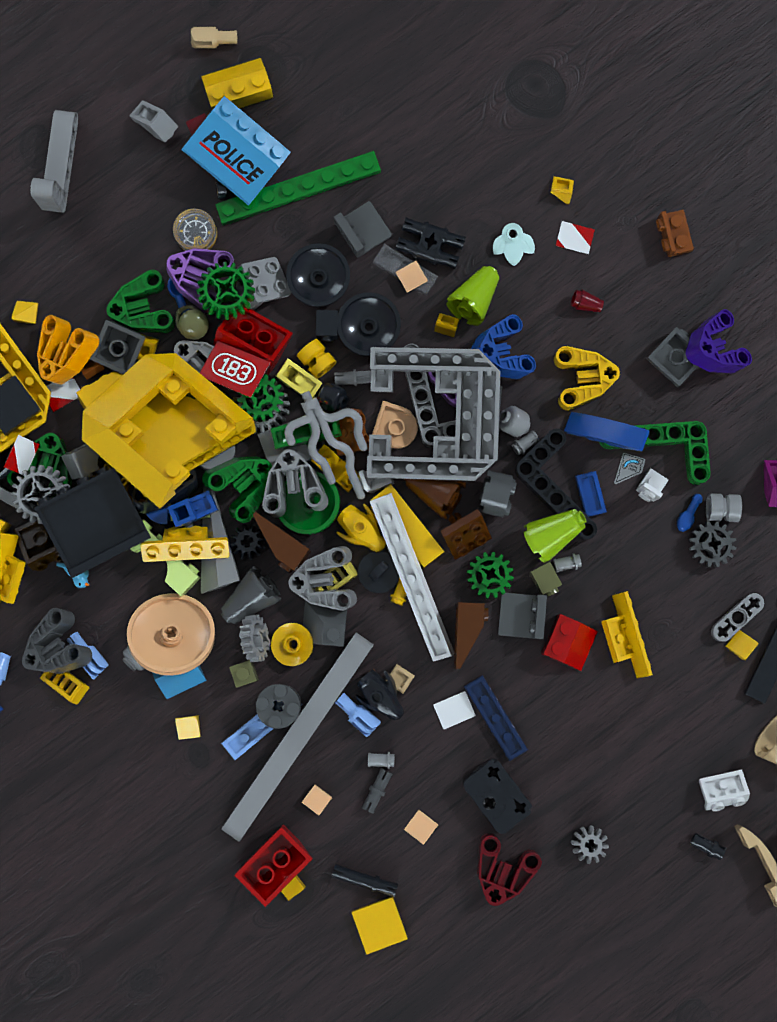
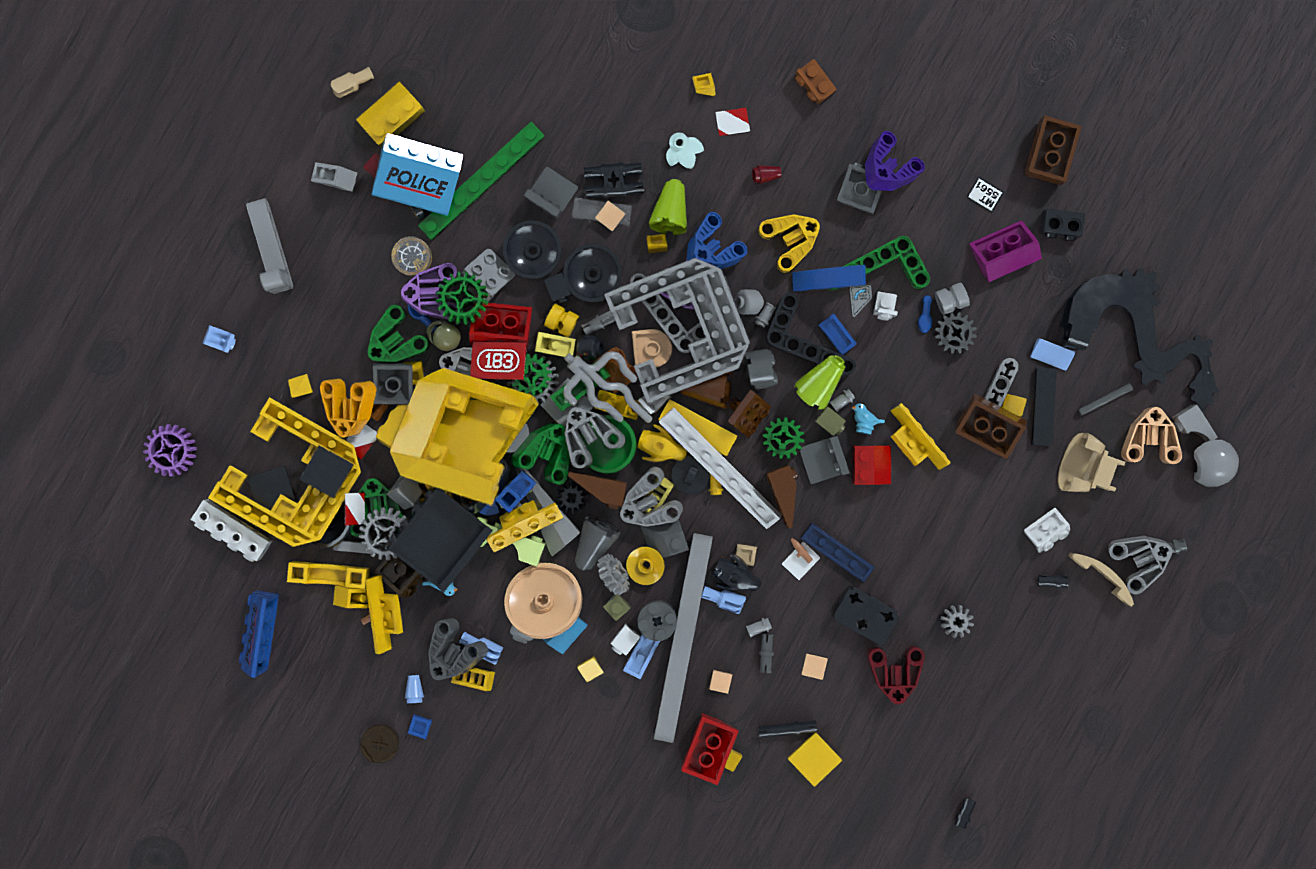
camera: 25 degrees left, 5 degrees up
(237, 712) = (625, 640): none -> white brick
(459, 700) = (801, 551): none -> nougat helmet
(582, 593) = (865, 419): none -> medium azure animal
(709, 655) = (990, 426): none -> reddish brown brick

